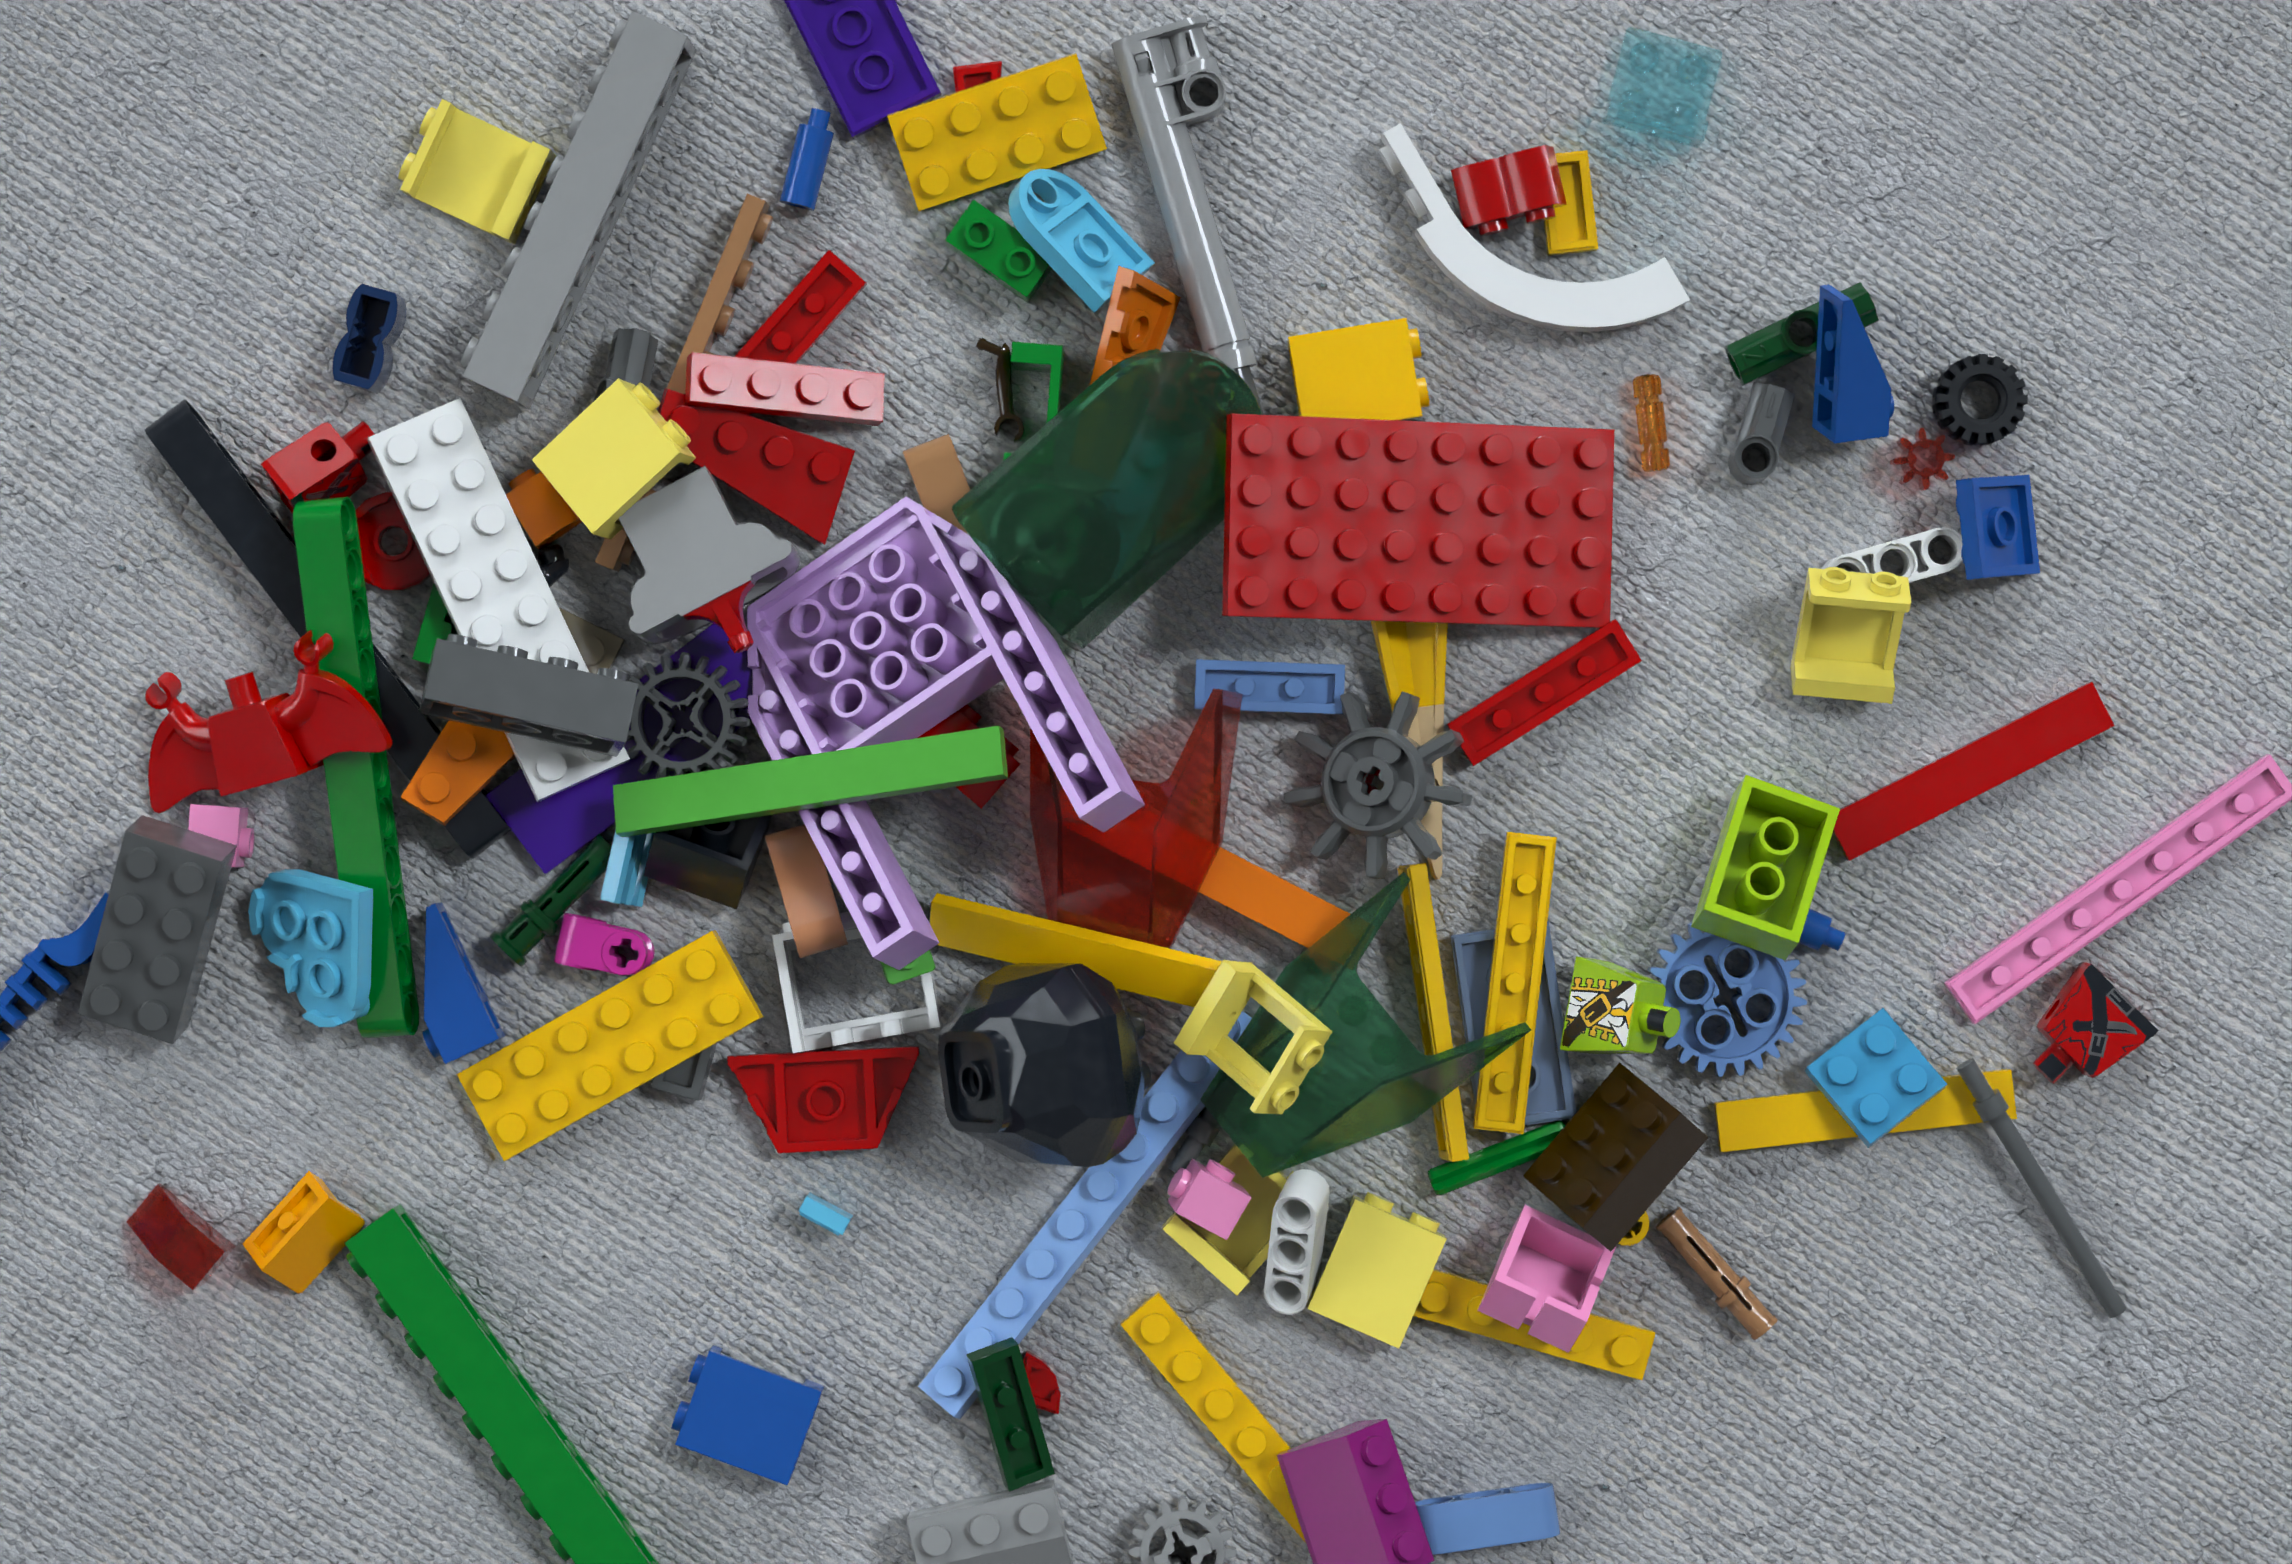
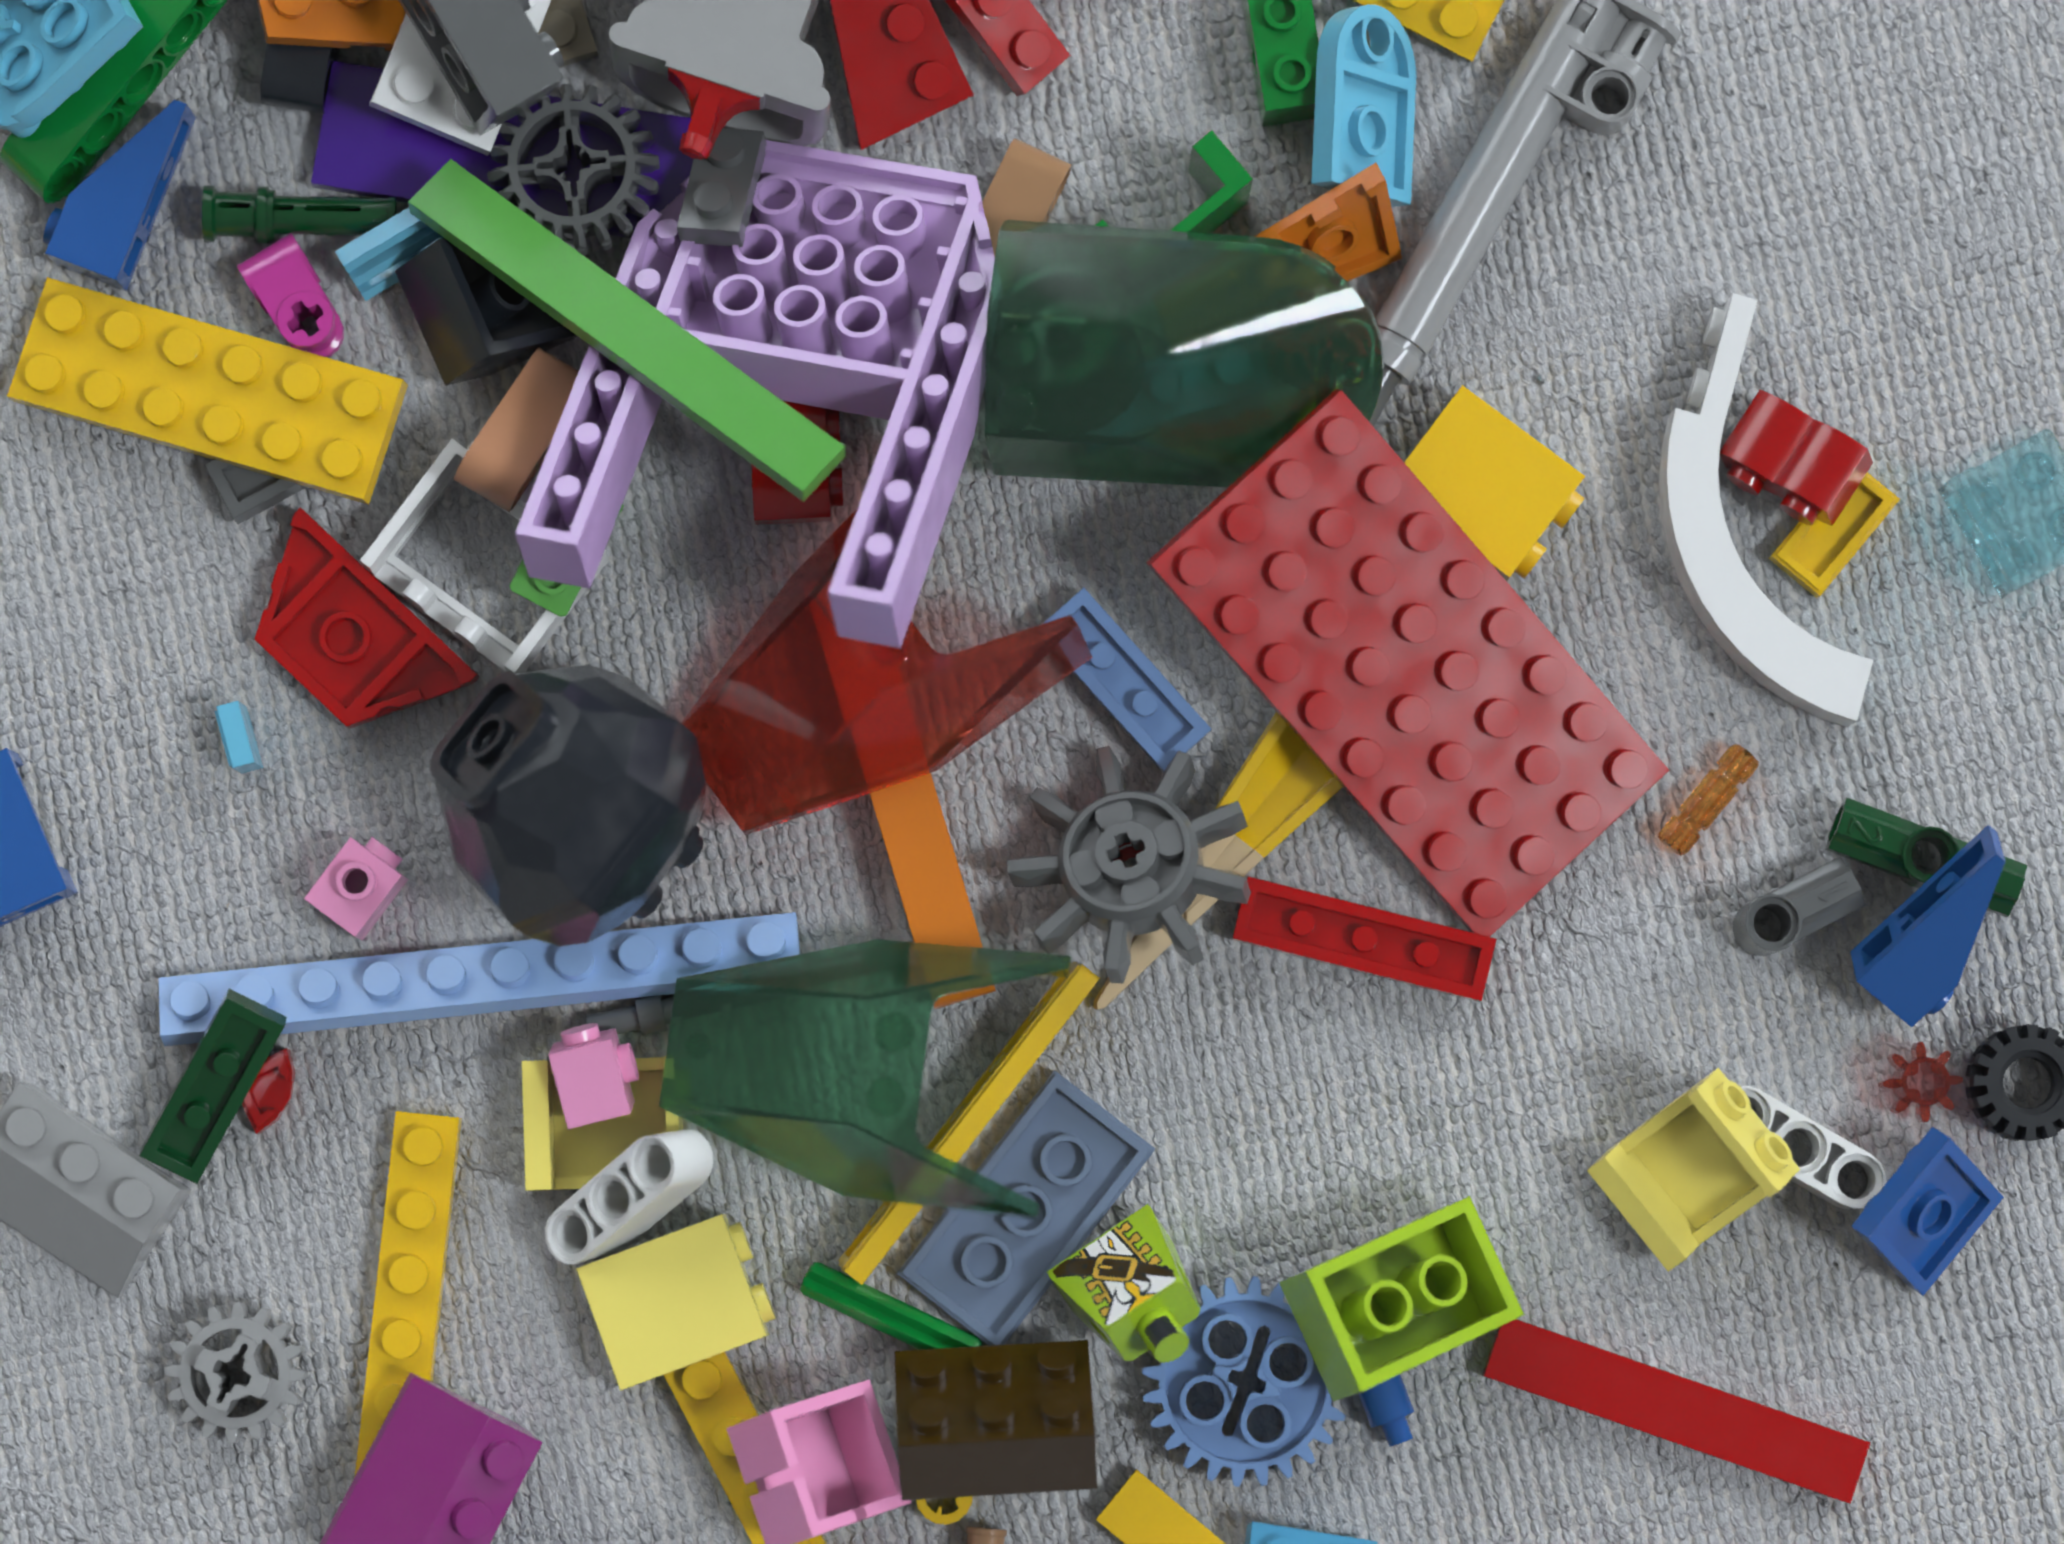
camera: 50 degrees right, 5 degrees down
(777, 648) = (723, 189): none -> dark grey plate
(974, 1226) = (358, 886): none -> bright pink brick
(1003, 385) = (1163, 176): dark brown piece -> none
(1032, 939) = (734, 777): yellow tile -> none
(1216, 1014) = (771, 914): light yellow panel -> none
(1515, 978) = (1072, 1168): yellow tile -> none

